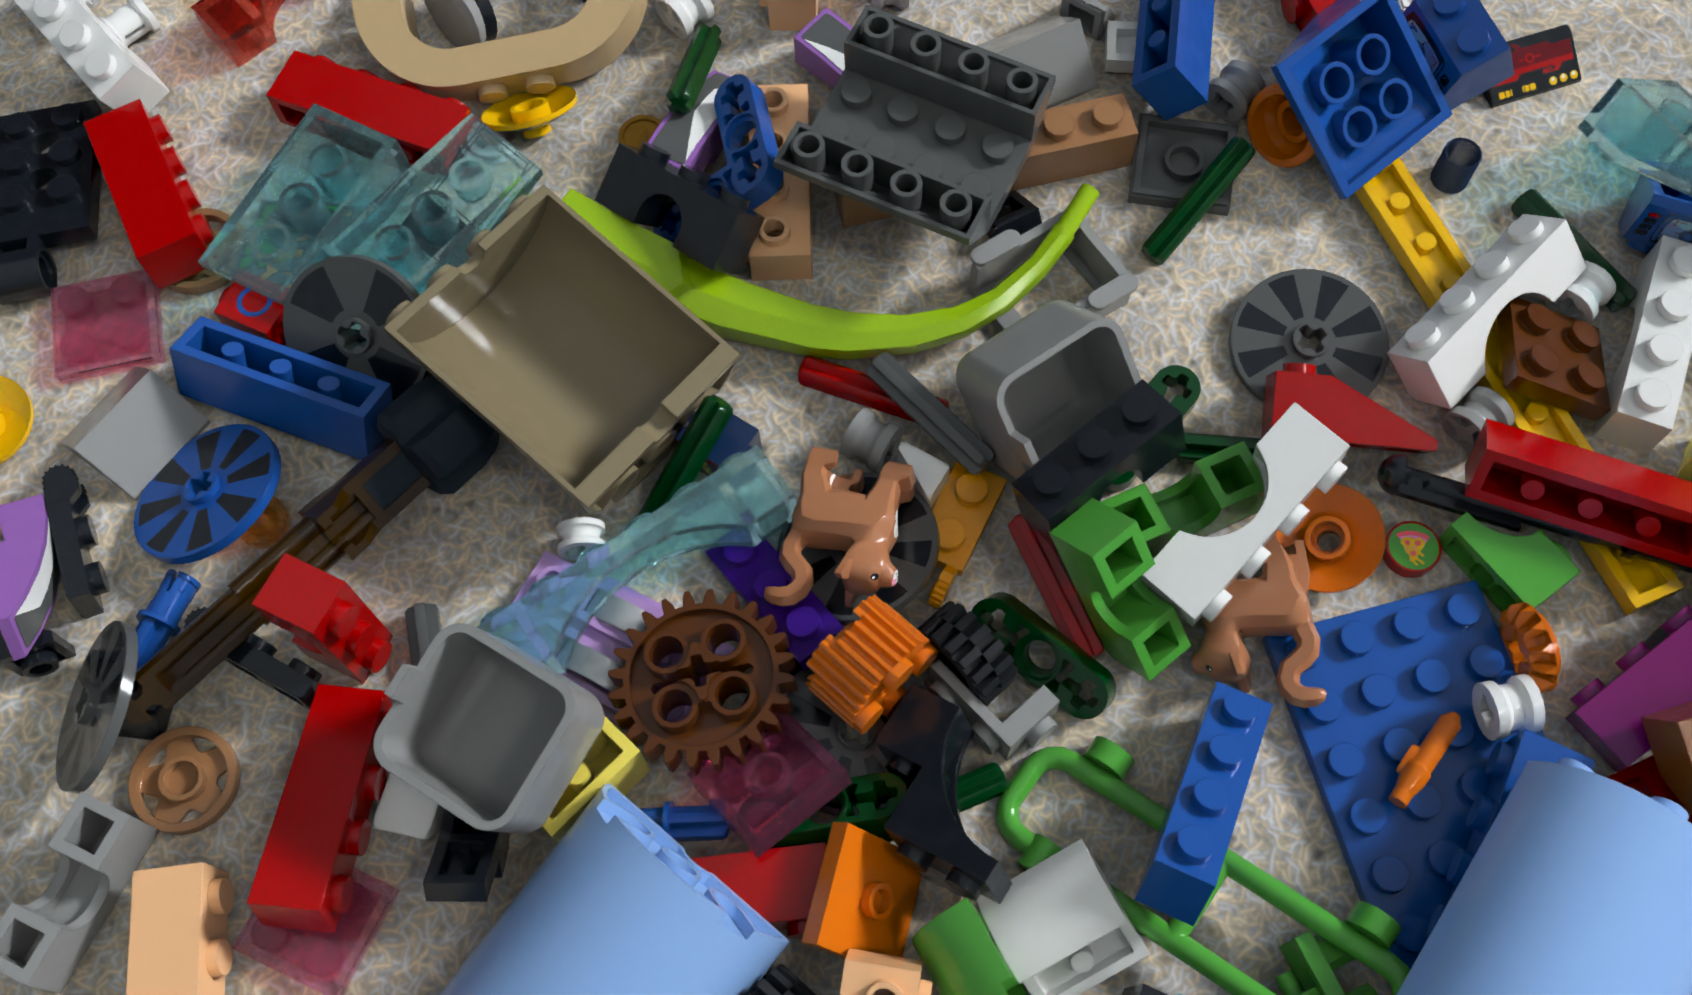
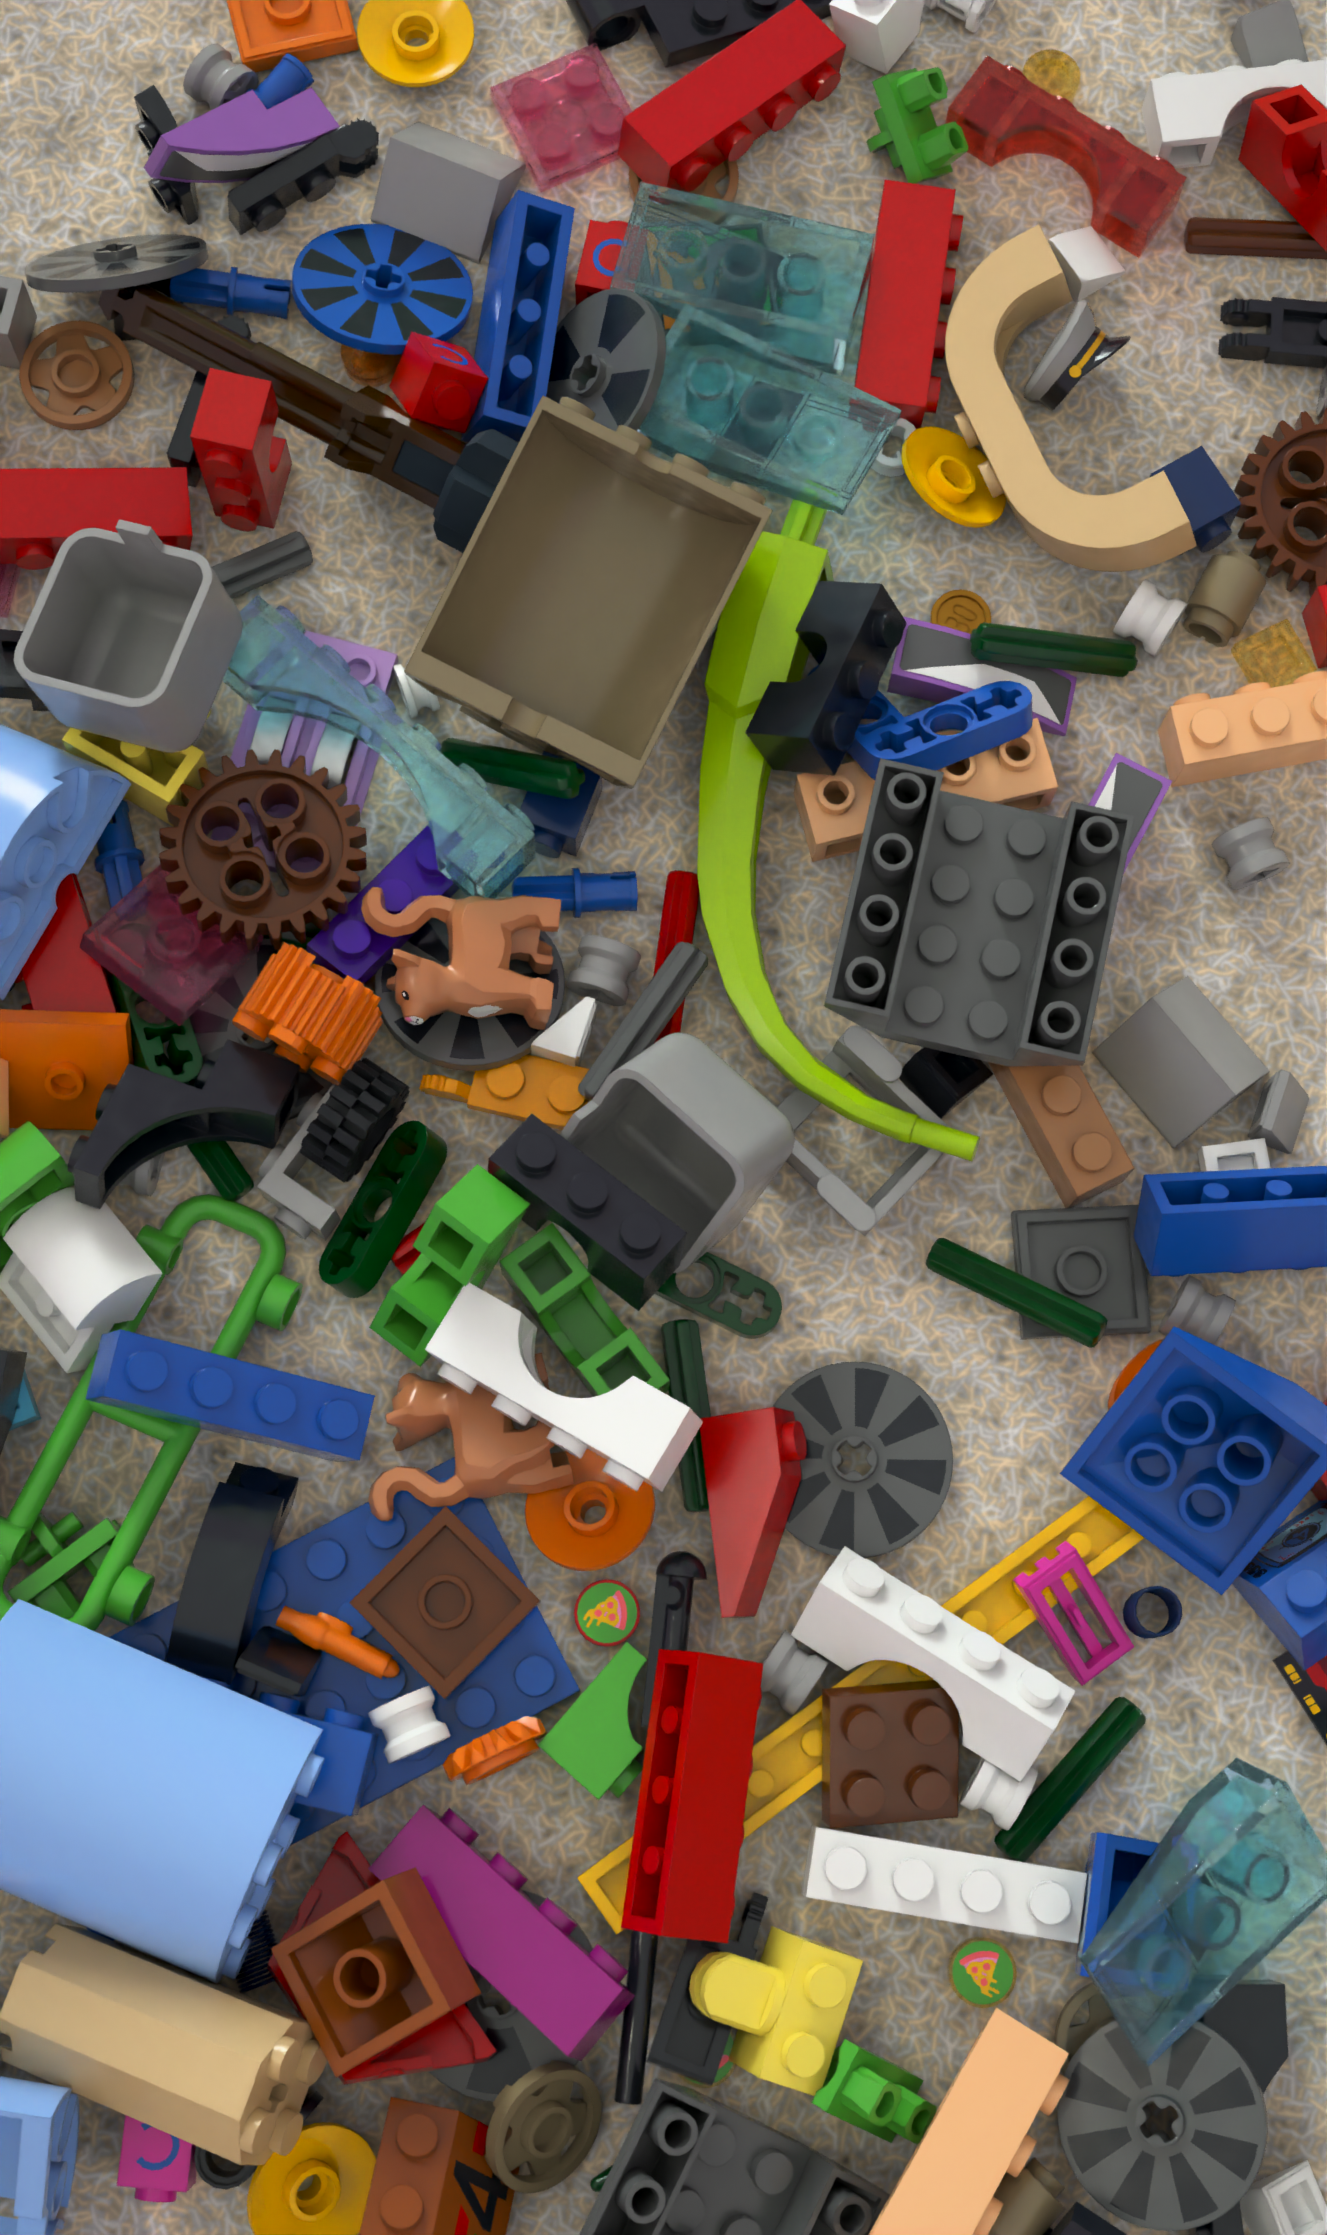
camera: 70 degrees right, 10 degrees up
(249, 70) = (910, 127): none -> bright green hips
(316, 455) = (438, 382): none -> red brick
(798, 440) = (583, 890): none -> blue axle
(1361, 829) = (228, 1571): none -> black arch
(1403, 659) = (445, 1602): none -> reddish brown plate
(1442, 809) = (279, 1661): none -> black slope
(1457, 222) = (1049, 1575): none -> dark pink tile

